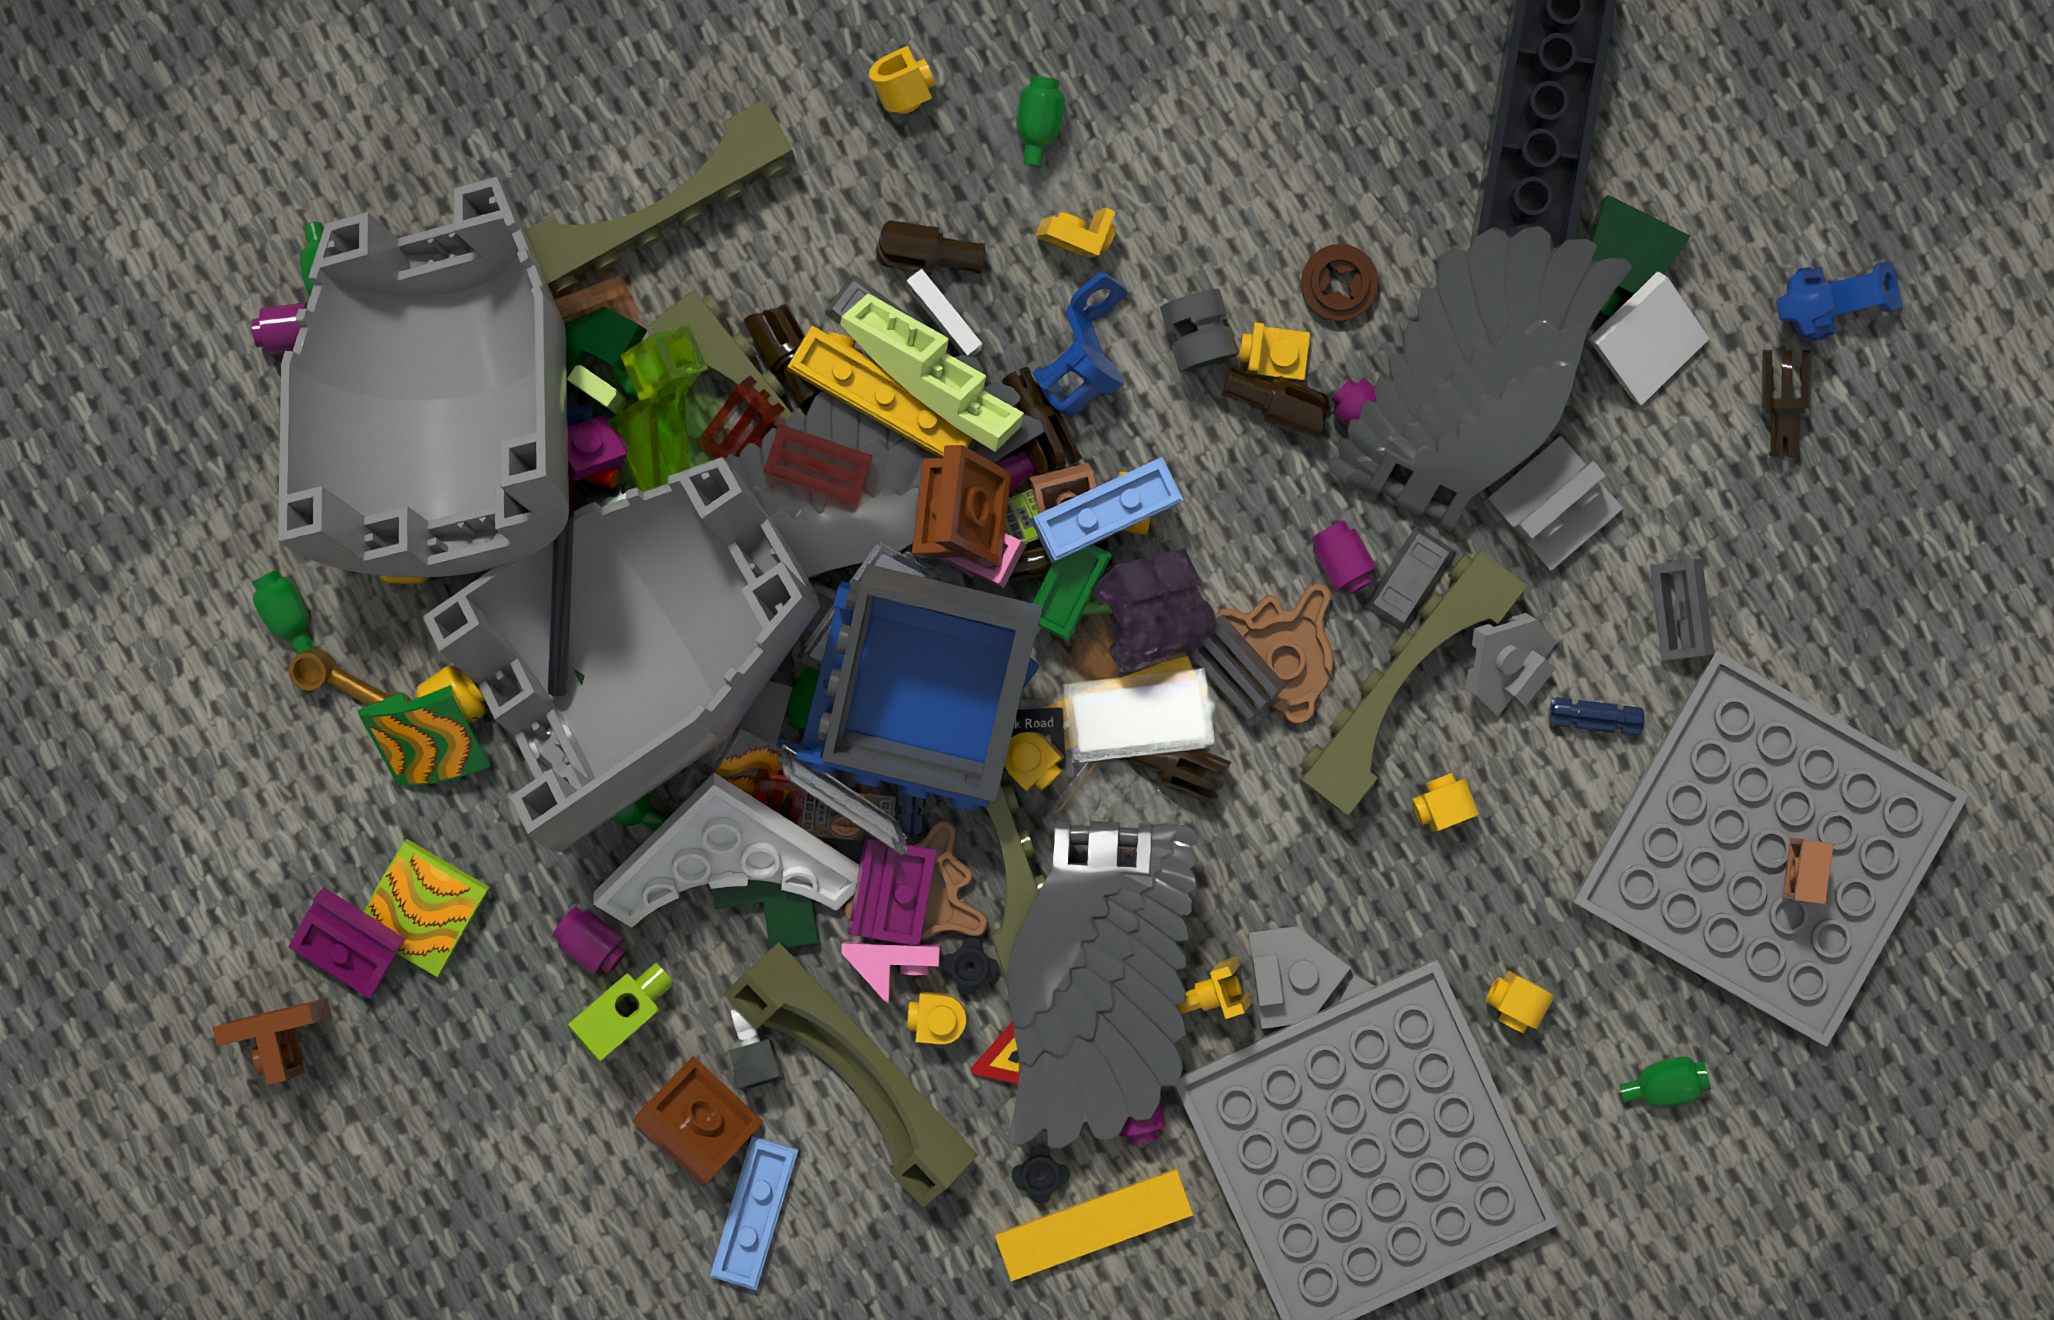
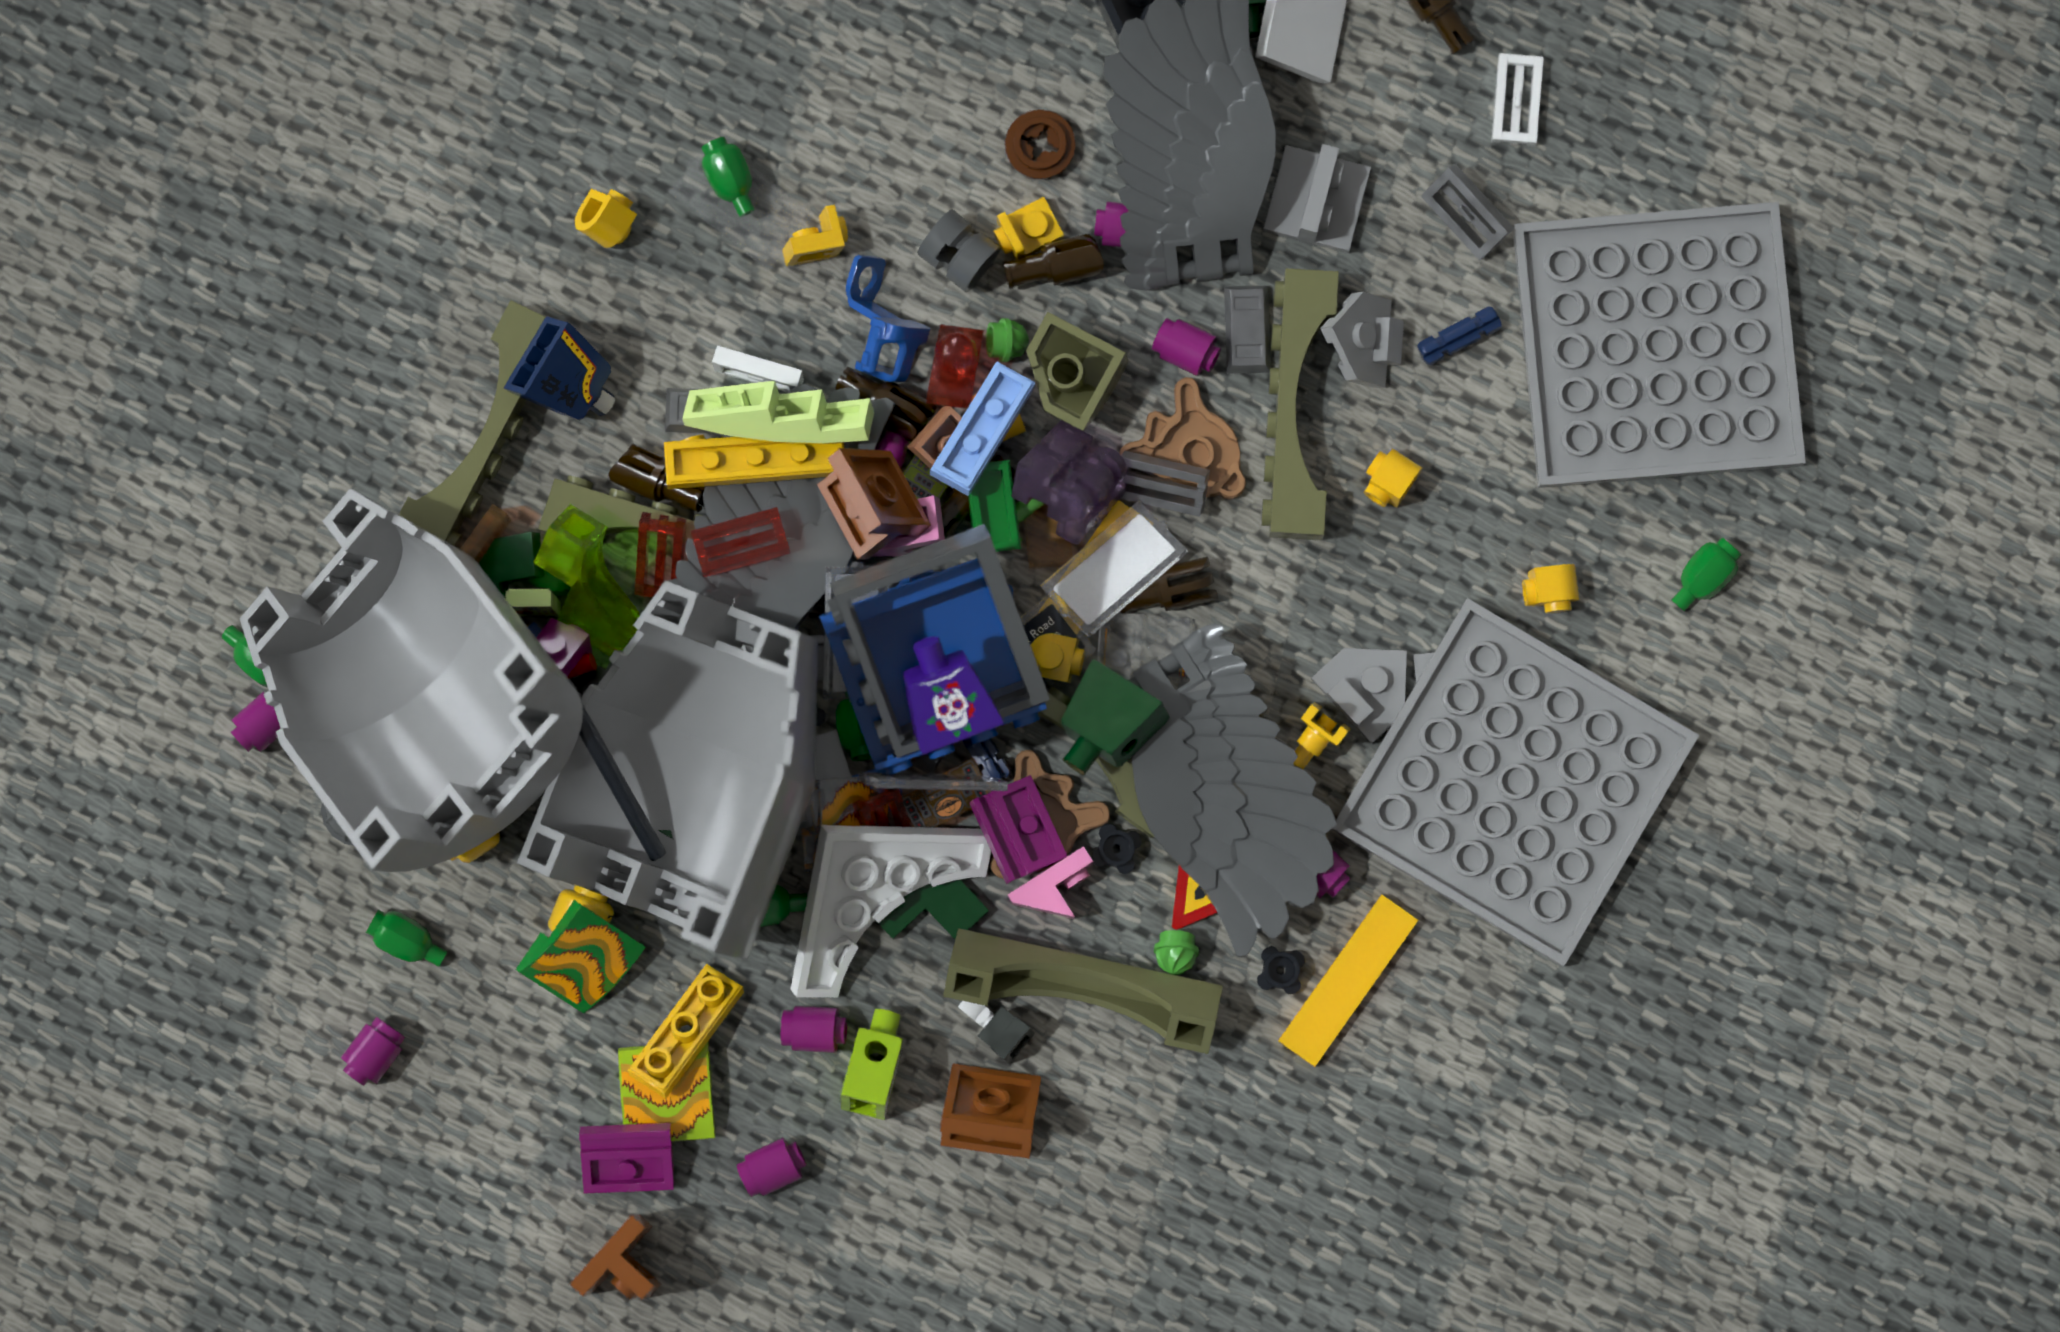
camera: 30 degrees left, 5 degrees down
(186, 692) = (372, 1052): none -> magenta brick
(320, 667) = (462, 963): pearl gold bar -> none
(447, 877) = (671, 1051): none -> yellow tile
(469, 1038) = (771, 1167): none -> magenta brick
(754, 1212) = (1082, 1151): light blue tile -> none
(764, 198) = (562, 372): none -> dark blue torso
(901, 741) = (946, 697): none -> dark purple torso
(924, 247) = (703, 332): dark brown arm -> none
(936, 1018) = (1119, 904): yellow plate -> none
(958, 1095) = (1176, 951): none -> bright green plate
(1037, 853) = (1109, 719): none -> dark green torso
(1123, 433) = (955, 366): none -> clear red tile
(1185, 440) = (1006, 340): none -> bright green plate
(1224, 512) = (1073, 370): none -> olive slope
(1772, 568) = (1514, 136): none -> white tile
(1807, 870) = (1696, 338): nougat piece -> none

